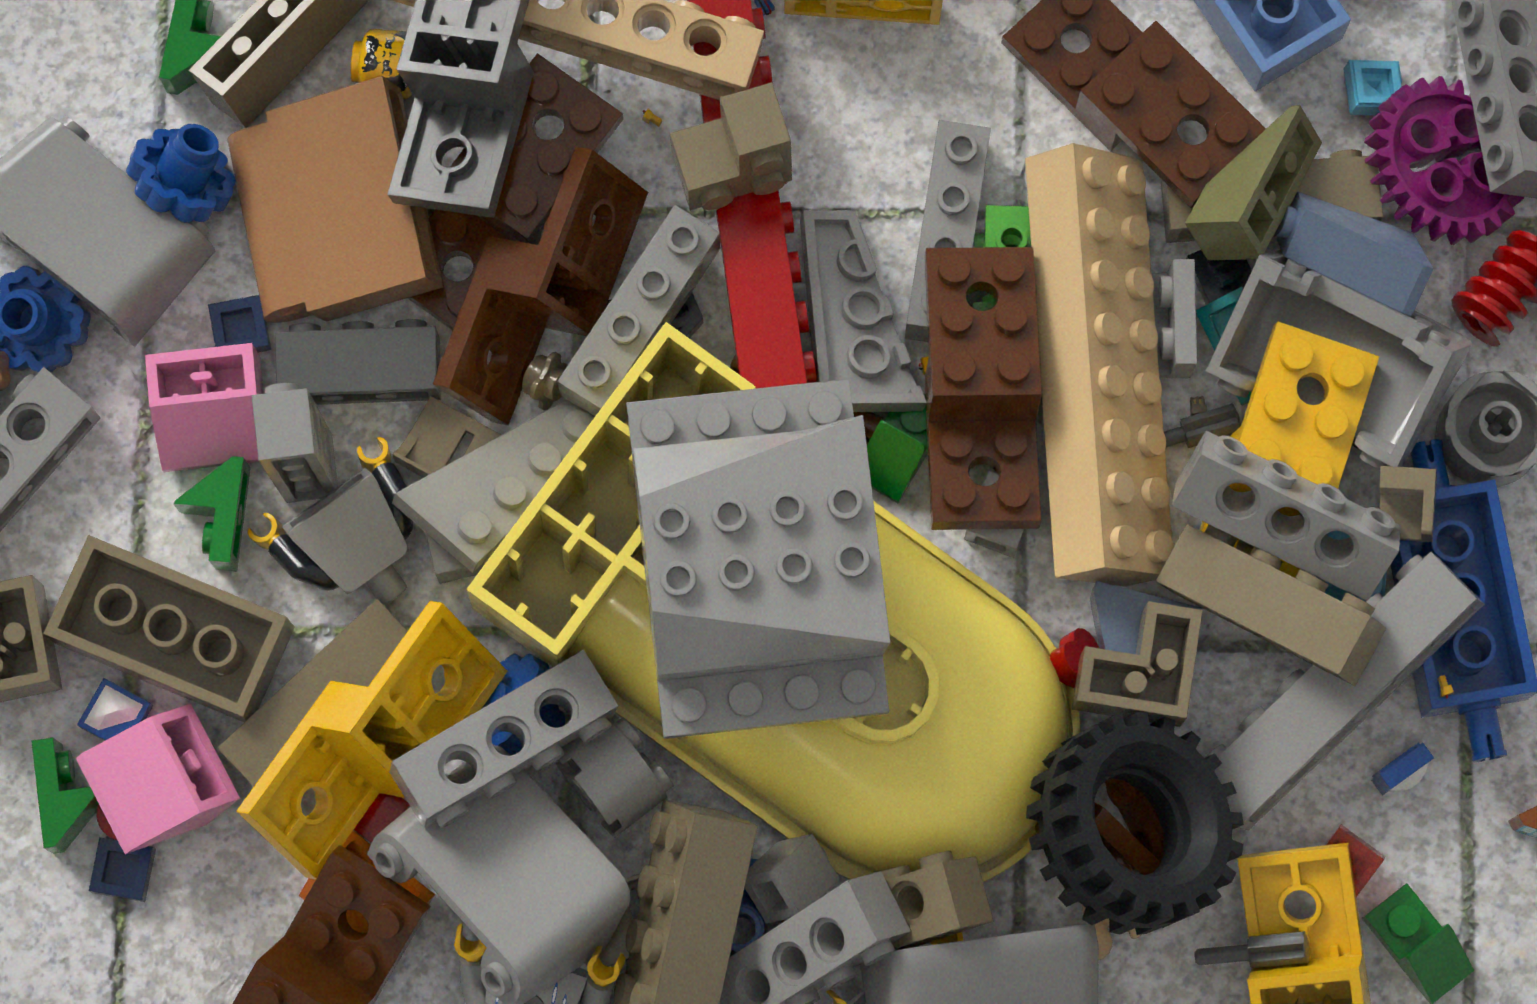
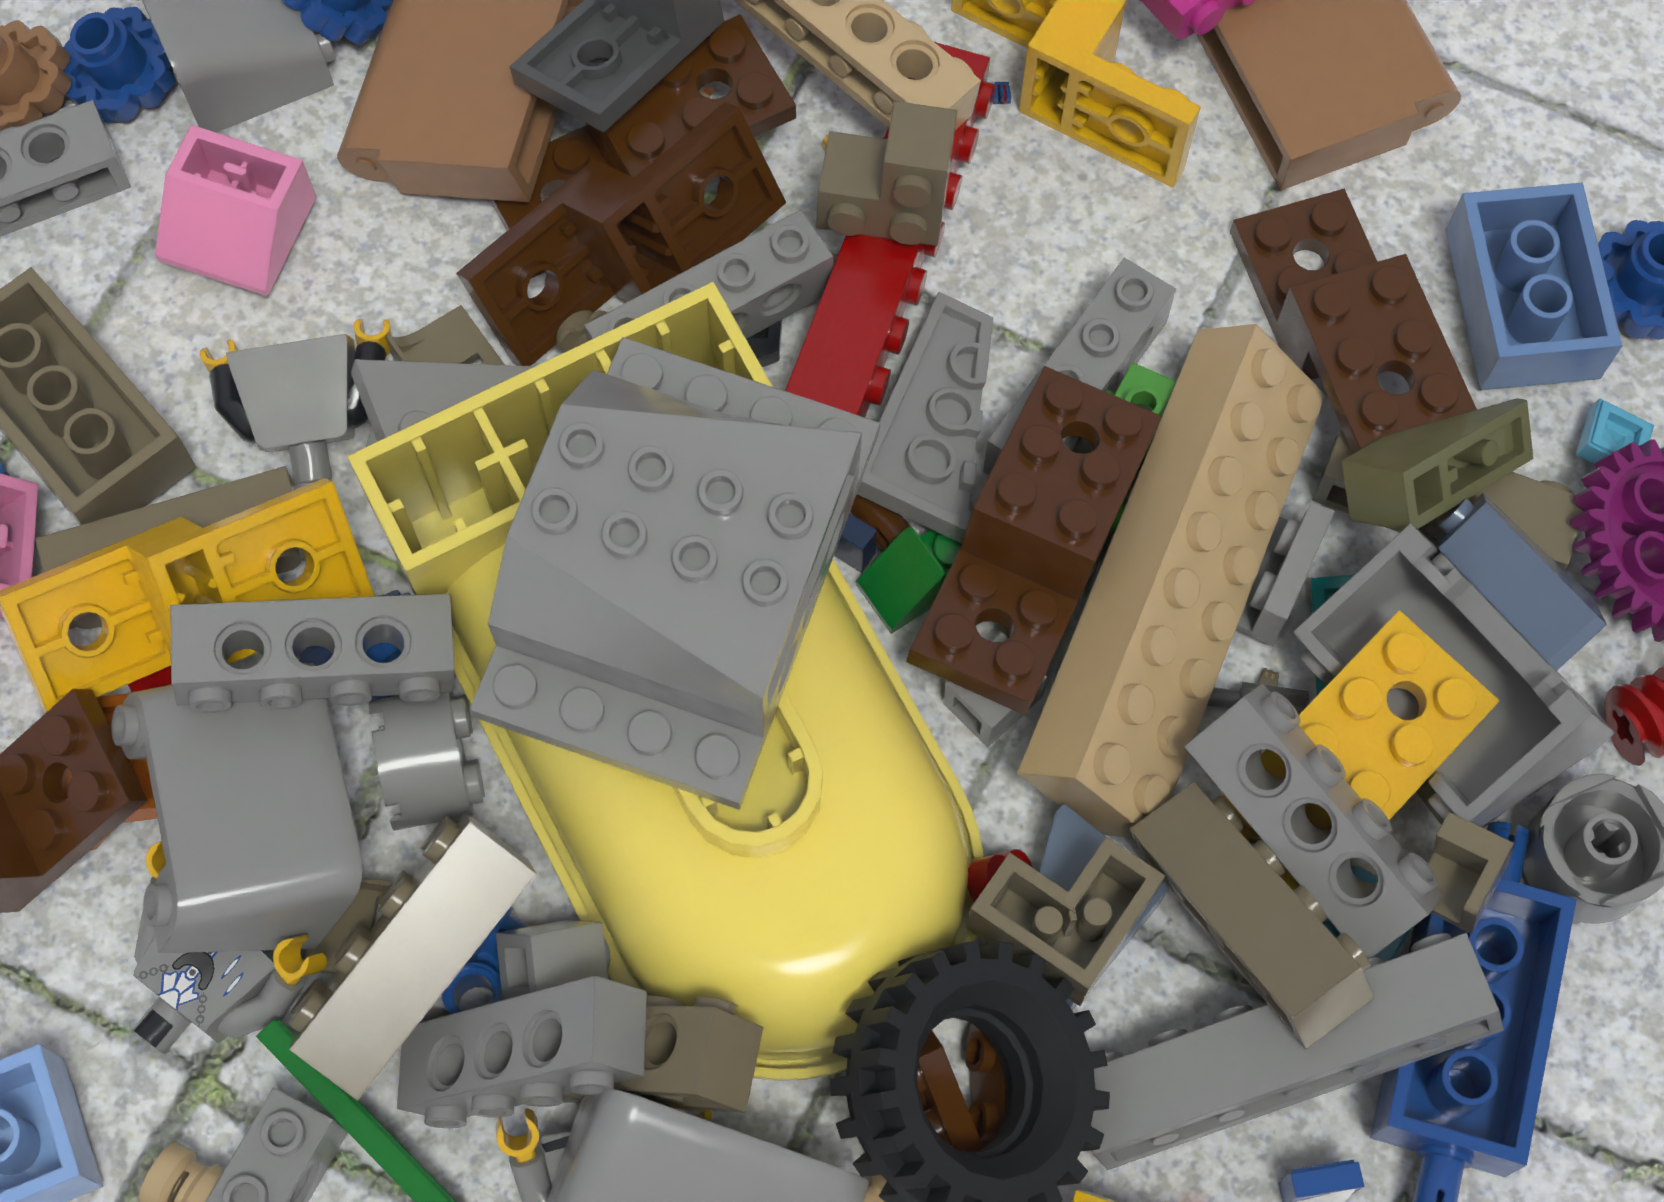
camera: 25 degrees right, 10 degrees down
(224, 498) = (196, 311): green slope -> none
(240, 323) = (319, 155): dark blue tile -> none
(294, 443) = (275, 255): light grey brick -> none
(360, 361) = (396, 238): dark grey brick -> none
(1219, 277) = (1352, 545): black tile -> none
(1445, 688) = (1414, 1109): yellow piece -> none

